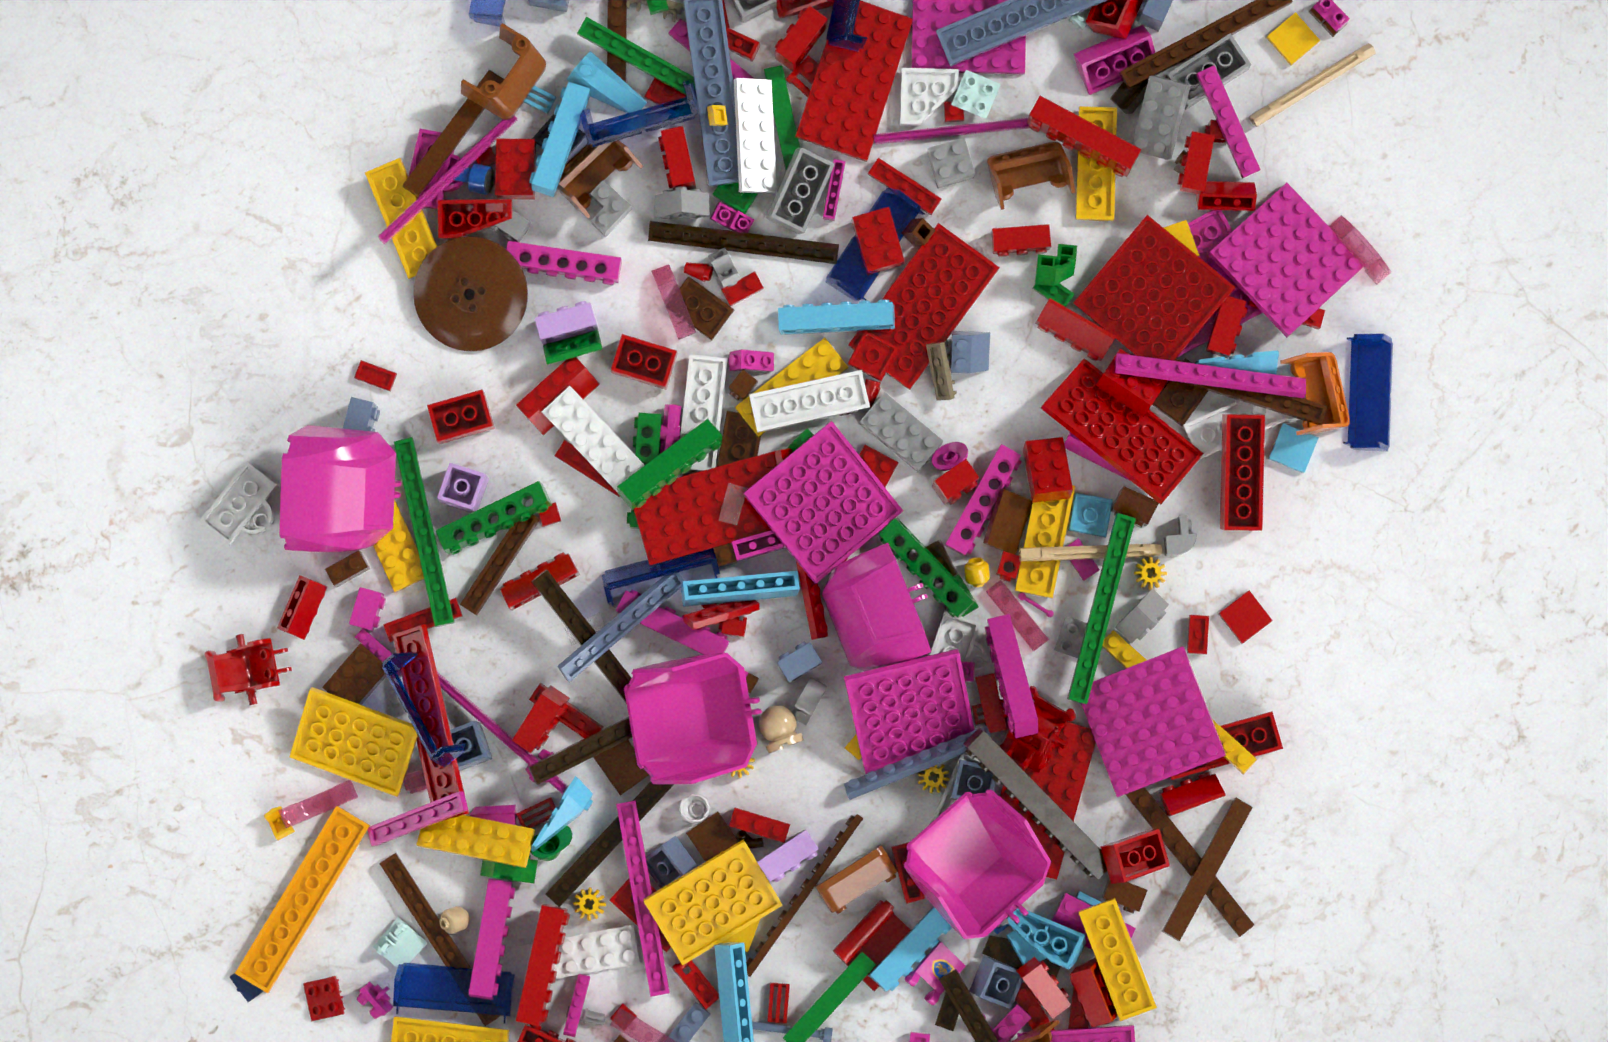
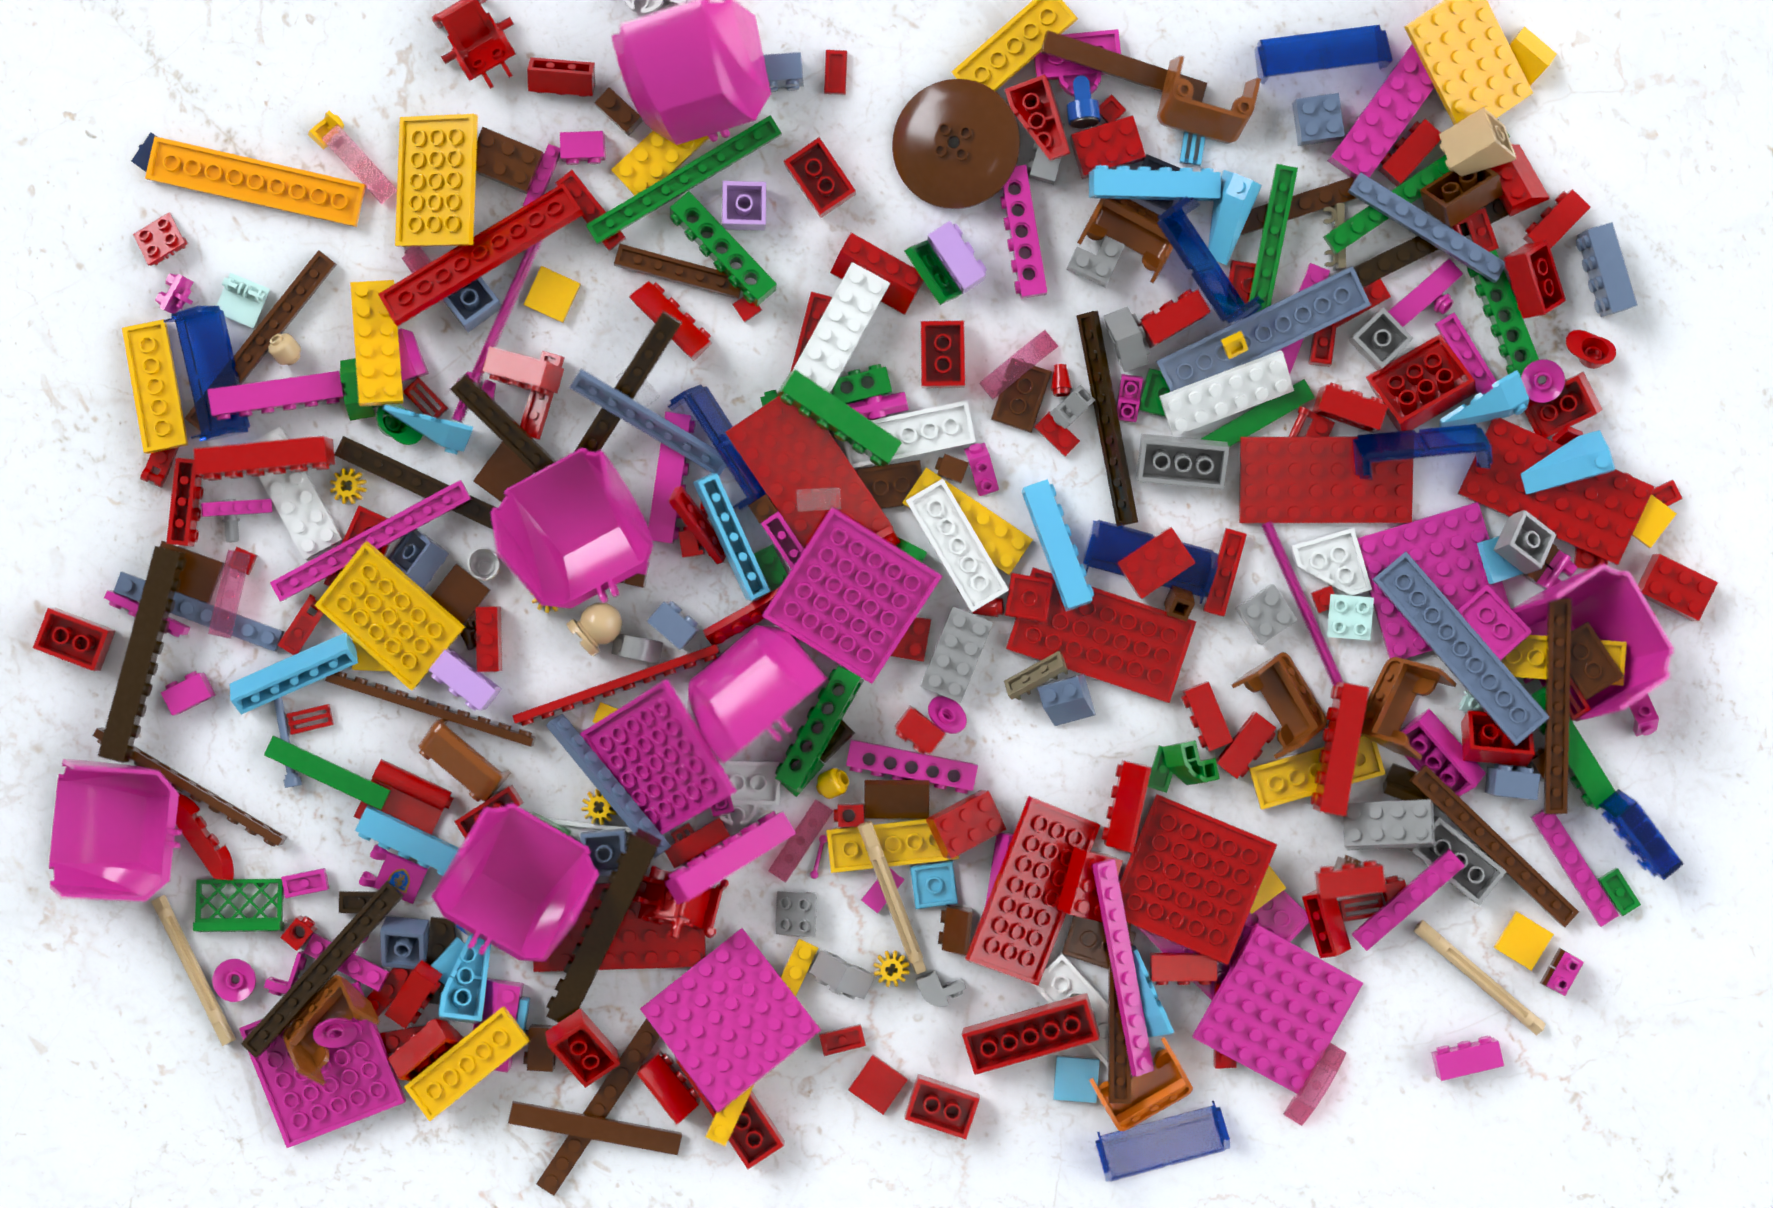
camera: 75 degrees right, 5 degrees up
(417, 818) = (375, 274): dark pink plate -> none
(444, 754) = (479, 234): clear blue piece -> none
(445, 179) = (1069, 74): dark pink axle -> none
(483, 676) = (552, 294): none -> yellow tile
(777, 564) = (771, 567): none -> green plate
(834, 190) = (1196, 497): dark pink piece -> none
(835, 737) = (608, 689): none -> red plate
(1055, 81) = (1392, 699): none -> dark orange windscreen
(1056, 215) = (1246, 745): none -> red brick
(1101, 608) = (834, 929): green plate -> none
(1215, 164) = (1361, 907): none -> red tile
(1281, 567) = (942, 1106): none -> red brick
(1377, 116) = (1467, 1058): none -> dark pink brick

